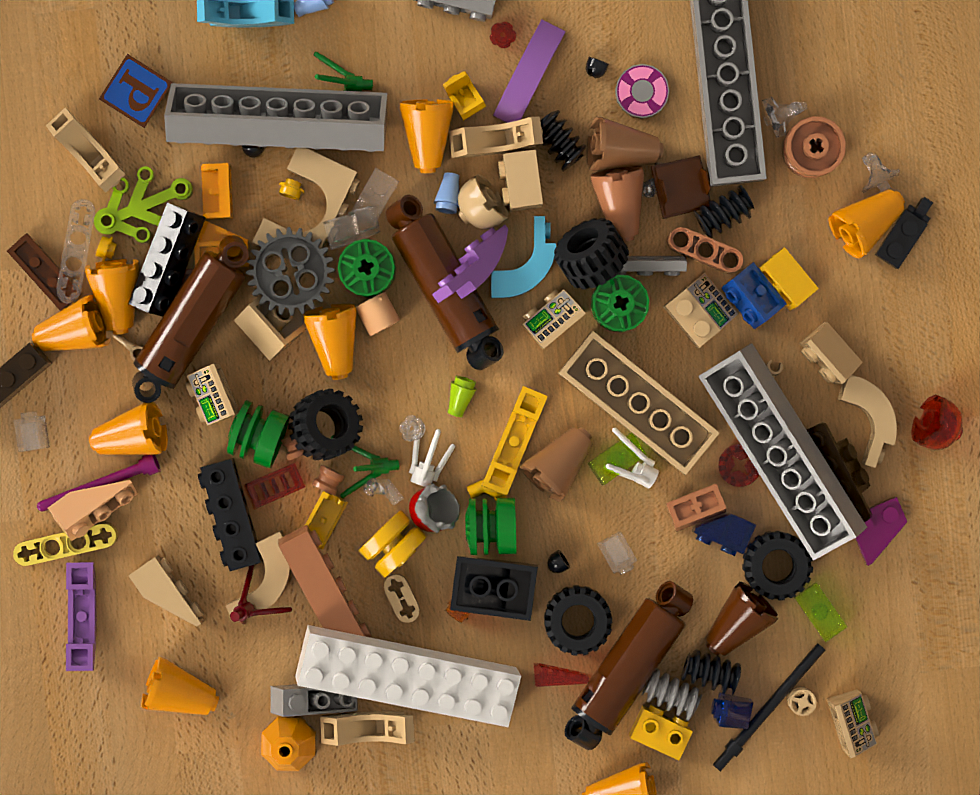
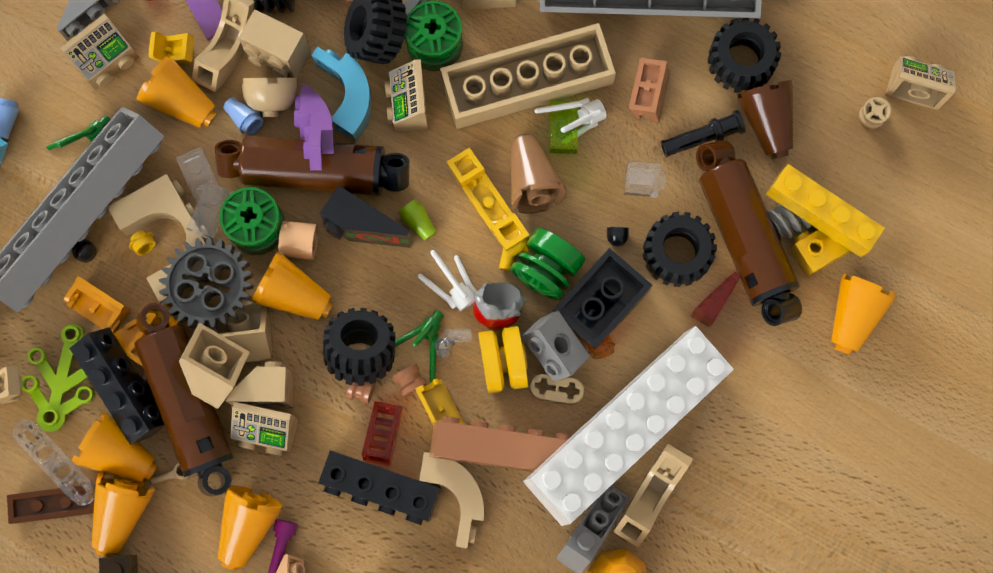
camera: 50 degrees left, 10 degrees down
(106, 248) = (72, 434): yellow plate -> none
(230, 328) = (212, 365): none -> tan slope
(243, 375) = (265, 387): none -> tan slope
(246, 609) = (471, 528): dark red plant -> none
(257, 434) = (325, 411): green wheel -> none
(418, 44) = (100, 52): none -> slope
(418, 428) = (423, 279): clear plate -> none
(424, 352) = (359, 222): none -> black slope
(431, 577) = (555, 346): none -> light grey brick
(681, 717) = (825, 211): none -> yellow brick
(698, 582) = (714, 130): none -> black pin
(711, 671) = (805, 160): black piece -> none
(726, 530) = (688, 76): clear blue slope -> none
(732, 711) = (844, 173): clear blue slope -> none
(734, 747) = (877, 194): black bar -> none
(737, 477) = (646, 25): clear red gear -> none
(820, 612) = (807, 49): clear neon green plate -> none

